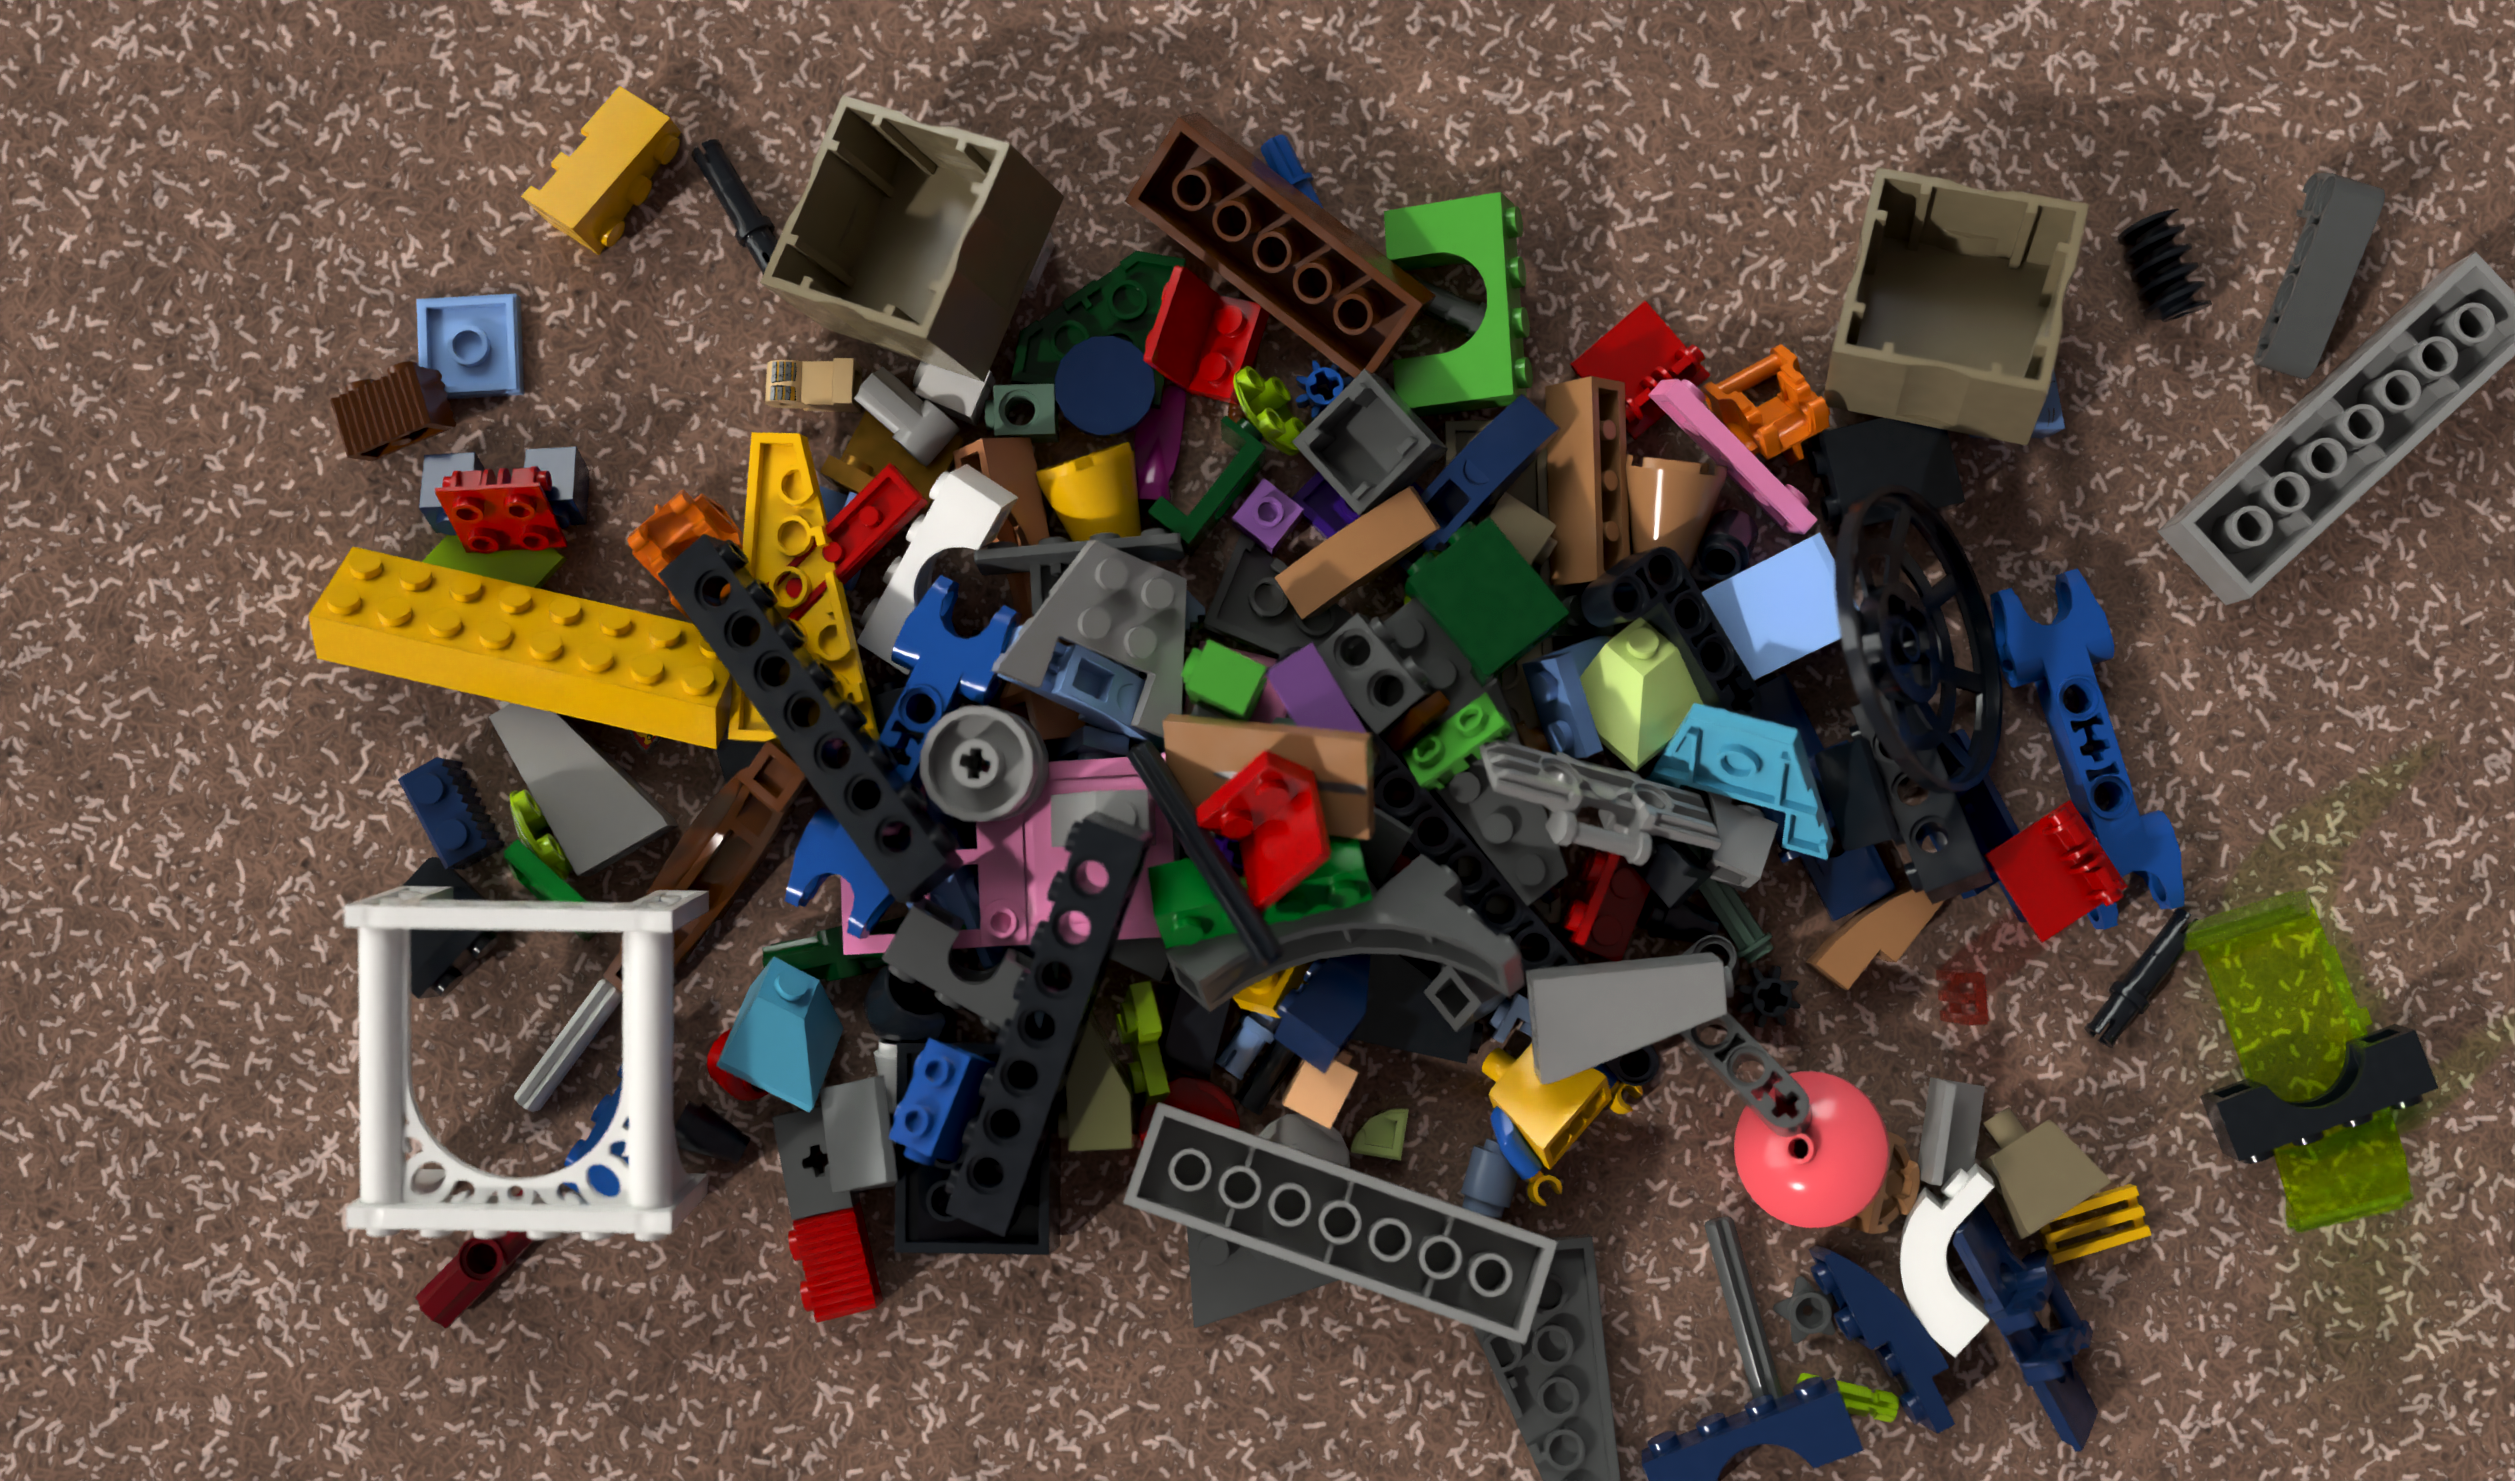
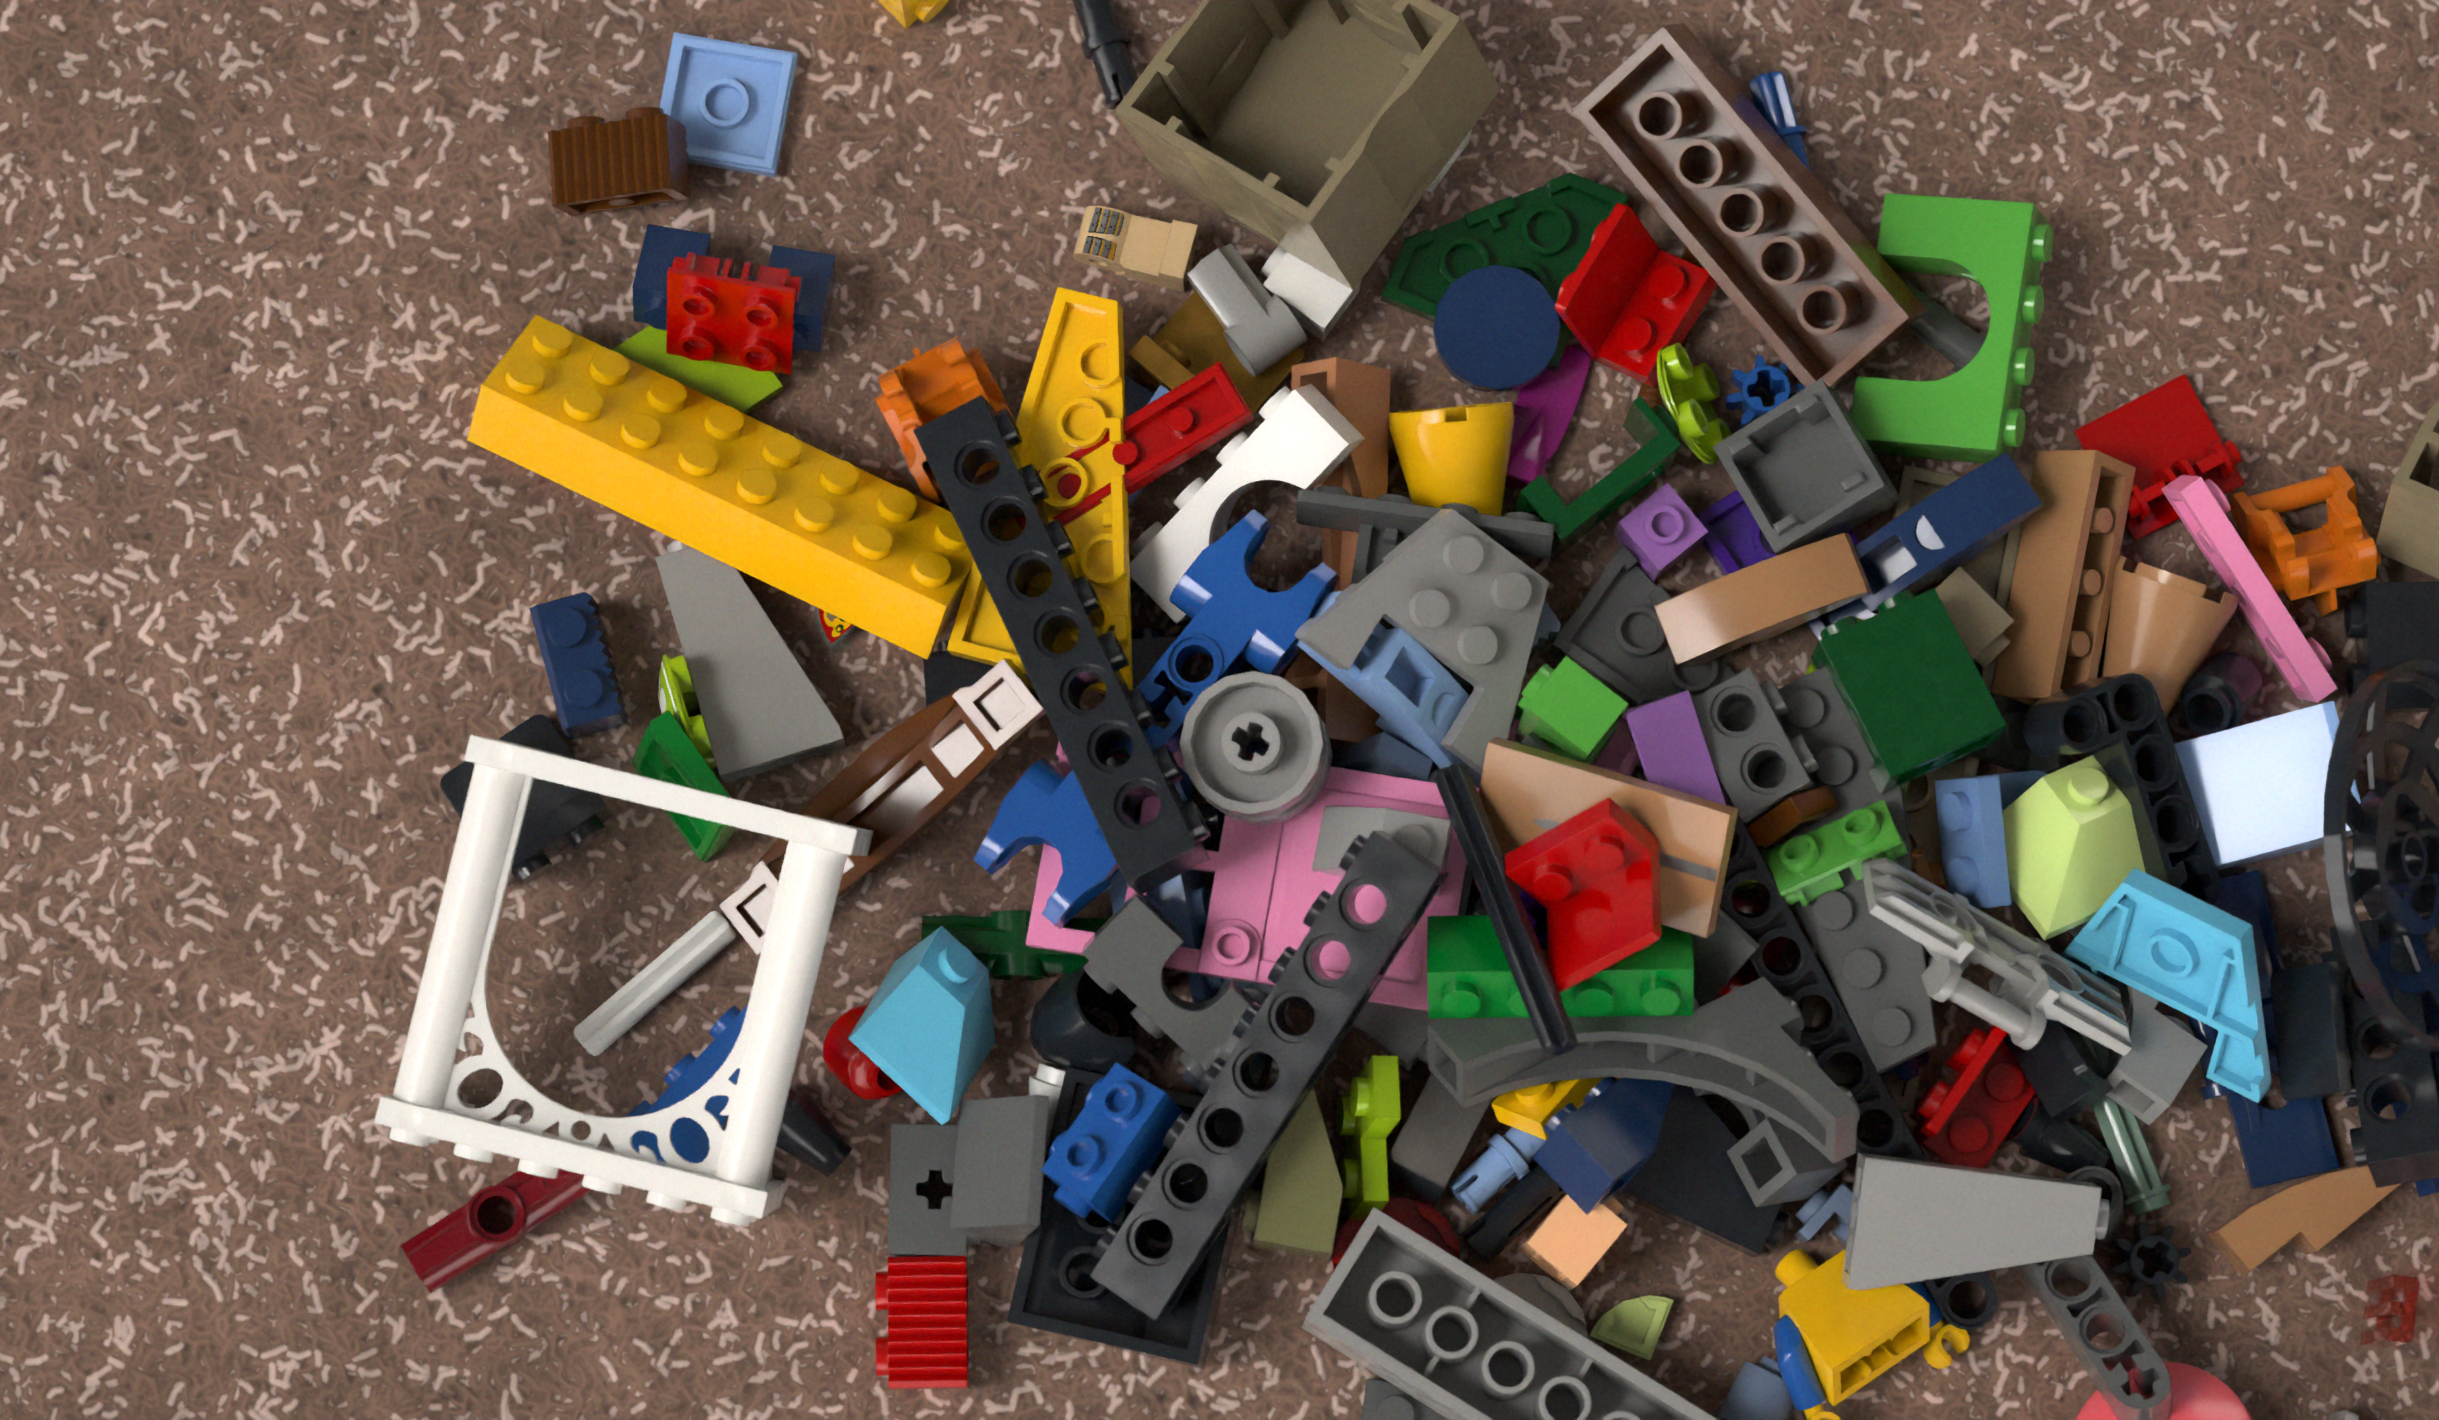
camera: 10 degrees right, 5 degrees down
(1043, 426) = (1410, 322): sand green brick -> none

